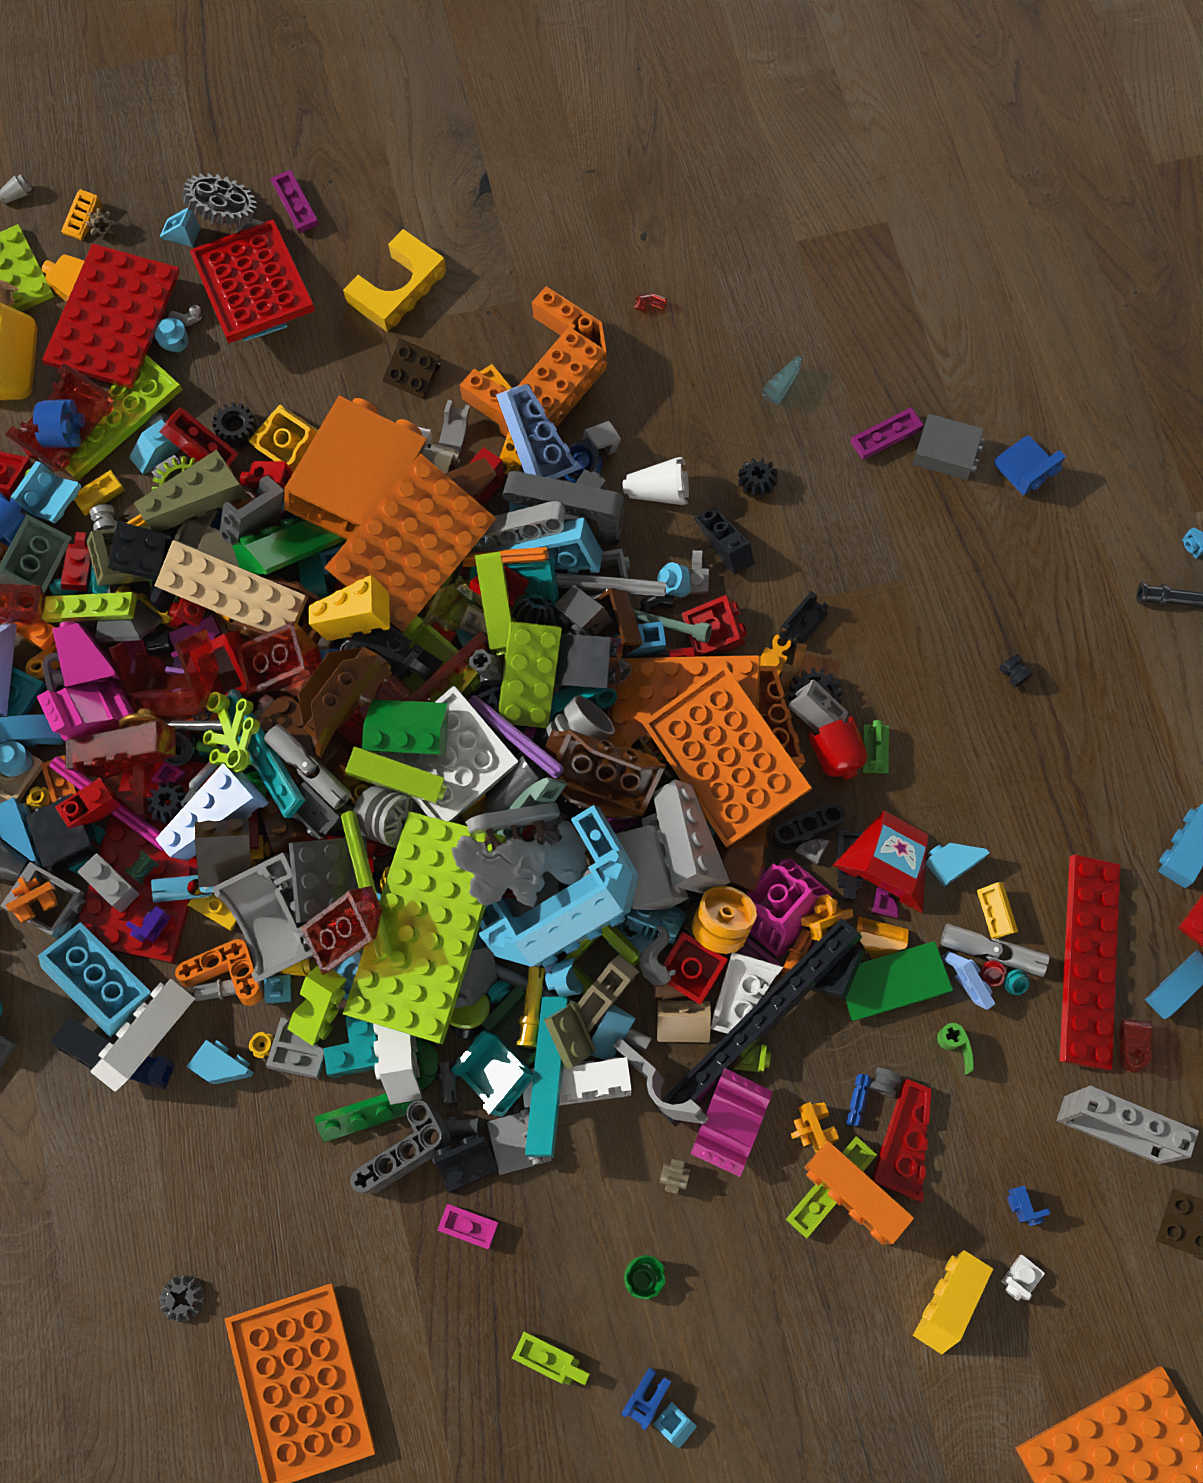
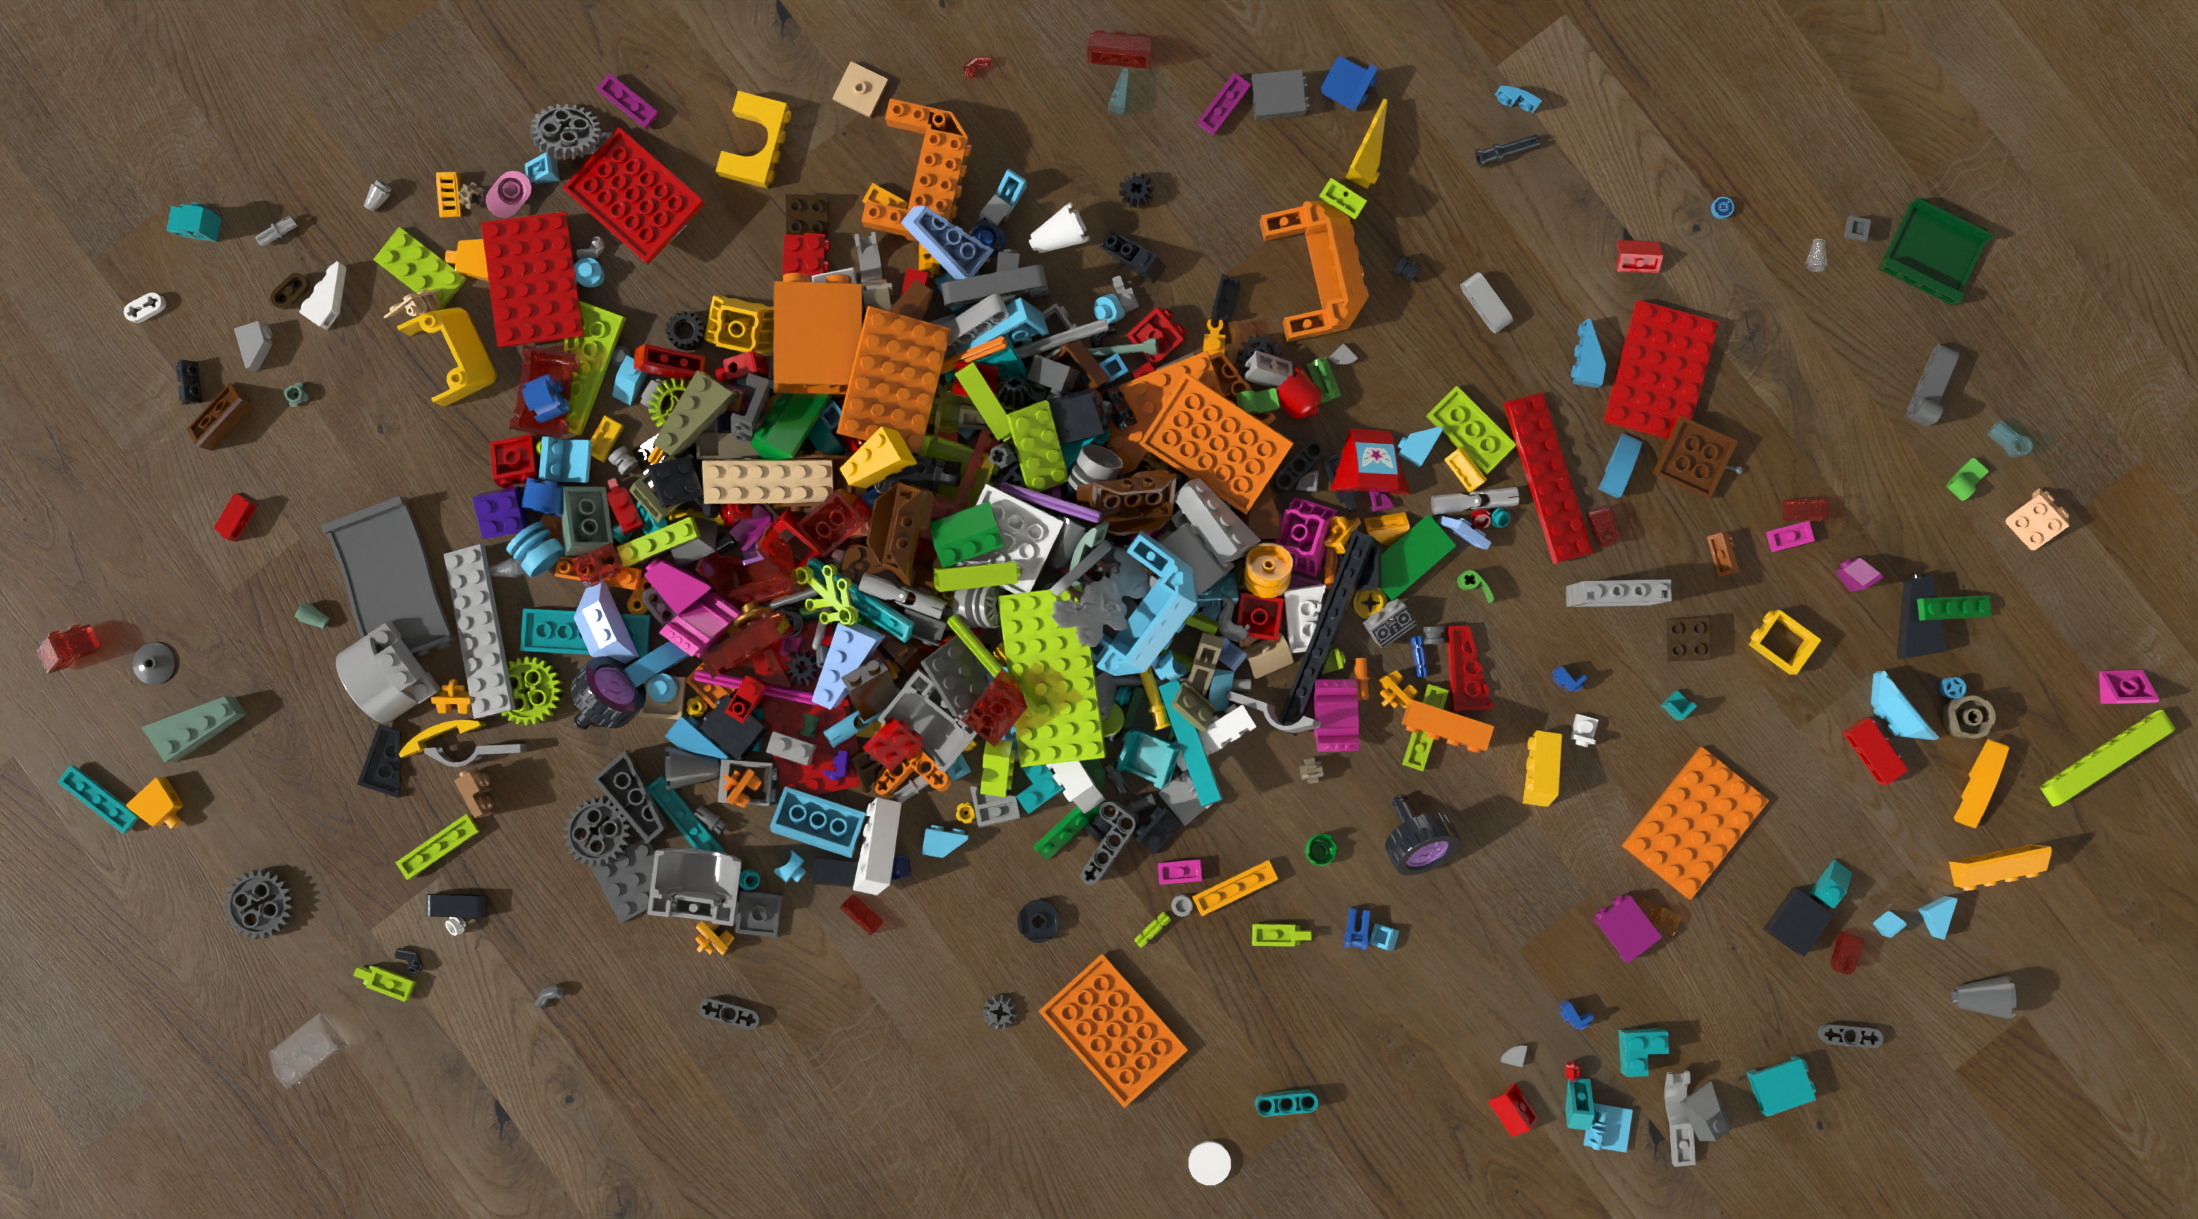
camera: 25 degrees left, 15 degrees up
(39, 1018) = (791, 869): none -> medium azure piece
(87, 1107) = (861, 914): none -> clear red slope
(134, 232) = (508, 194): none -> bright pink piece
(187, 938) = (866, 769): none -> dark brown wing
(219, 927) = (894, 743): none -> red plate
(265, 1216) = (1029, 929): none -> black plate
(392, 1131) = (1102, 824): none -> black wheel
(395, 400) = (806, 254): none -> red plate
(404, 1282) = (1152, 929): none -> lime axle
(452, 1269) = (1182, 905): none -> light grey tile
(523, 1276) = (1235, 887): none -> light orange plate
(524, 278) = (860, 89): none -> tan plate
(630, 424) = (1011, 188): none -> medium azure slope
(639, 997) = (1231, 654): none -> light blue bracket
(640, 686) = (1124, 414): none -> black hinge
(768, 1320) = (1420, 840): none -> black wheel
(779, 1095) = (1362, 678): none -> orange axle
(793, 735) = (1259, 401): none -> bright green panel
(800, 339) = (1119, 49): none -> clear red slope
(830, 1025) = (1361, 596): none -> yellow gear
(839, 1044) = (1389, 623): none -> brick
(907, 732) = (1342, 356): none -> light grey tile
(937, 631) = (1333, 262): none -> orange wedge
(977, 575) = (1349, 205): none -> lime window
(1016, 540) = (1367, 160): none -> yellow wedge
(1022, 869) = (1472, 429): none -> lime plate
(1091, 742) = (1486, 302): none -> light grey beam
(1149, 1301) = (1678, 705): none -> teal panel

